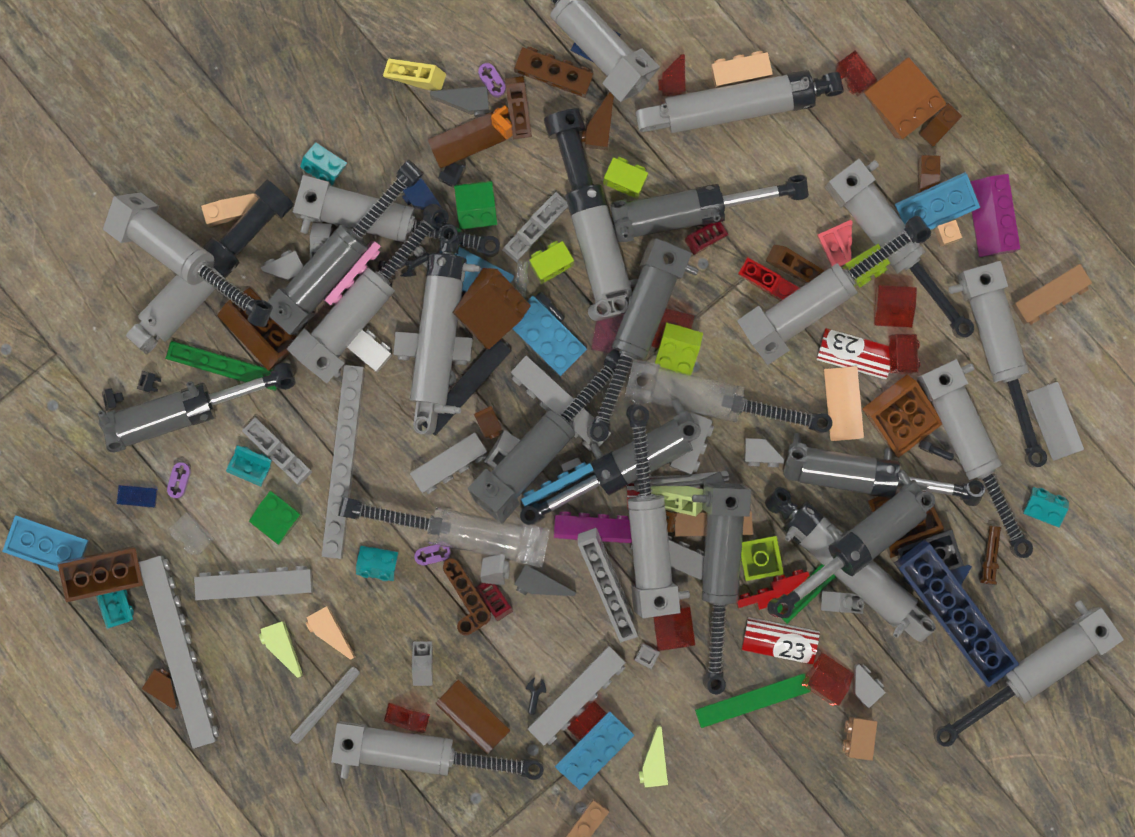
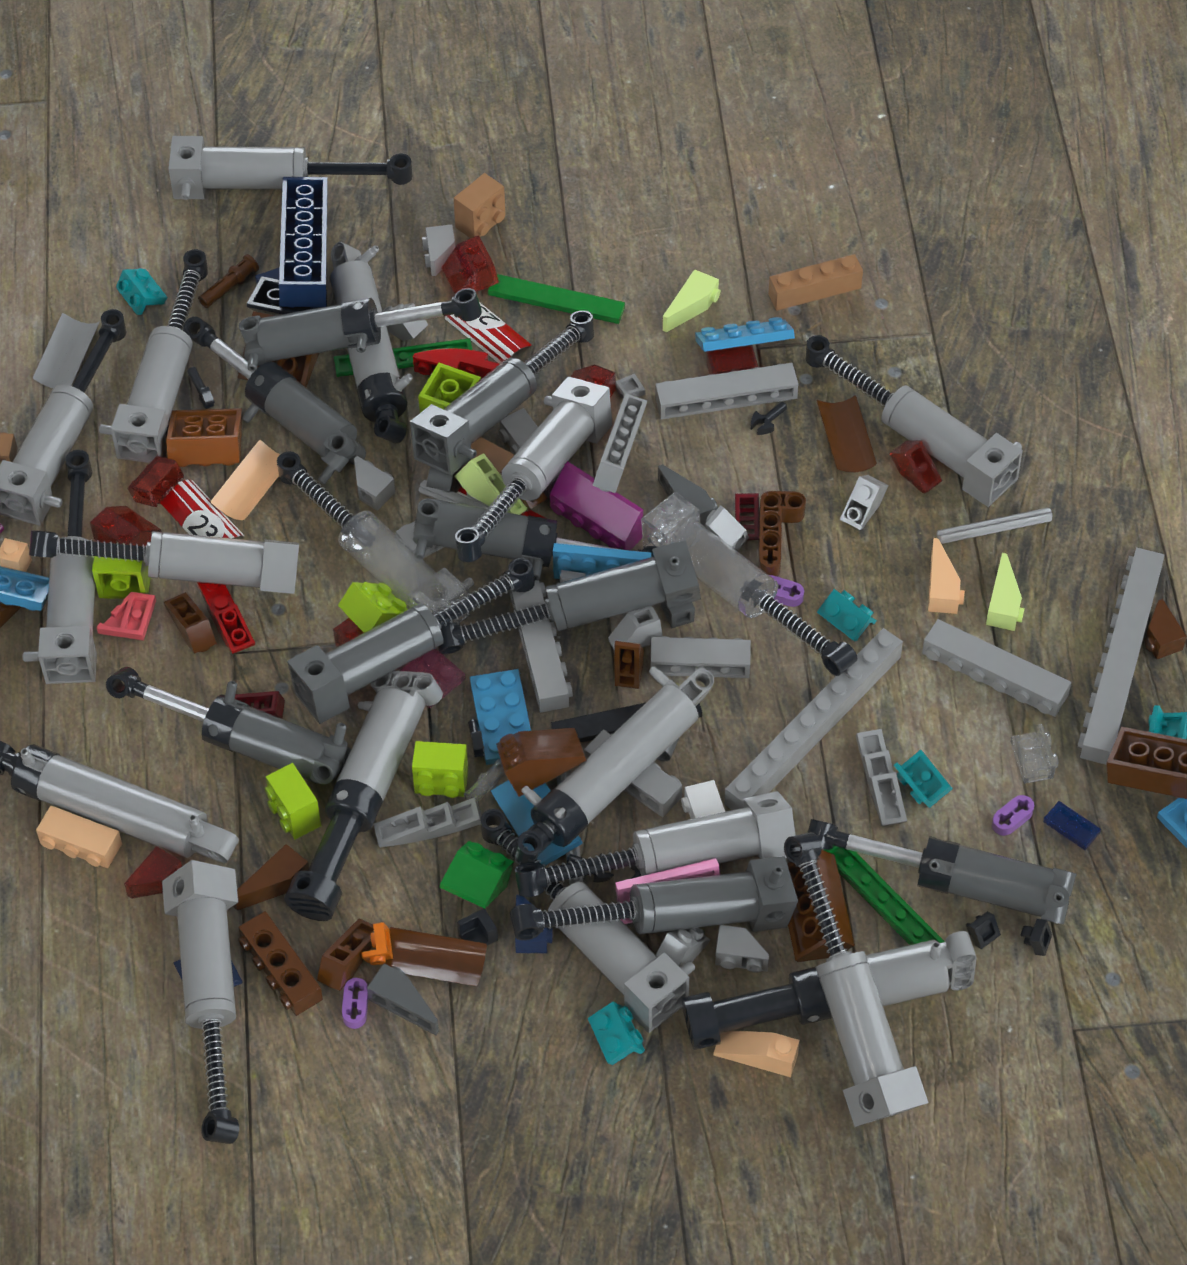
camera: 145 degrees left, 30 degrees down
(275, 517) = (926, 716): green slope -> none
(415, 74) = (438, 1061): light yellow slope -> none

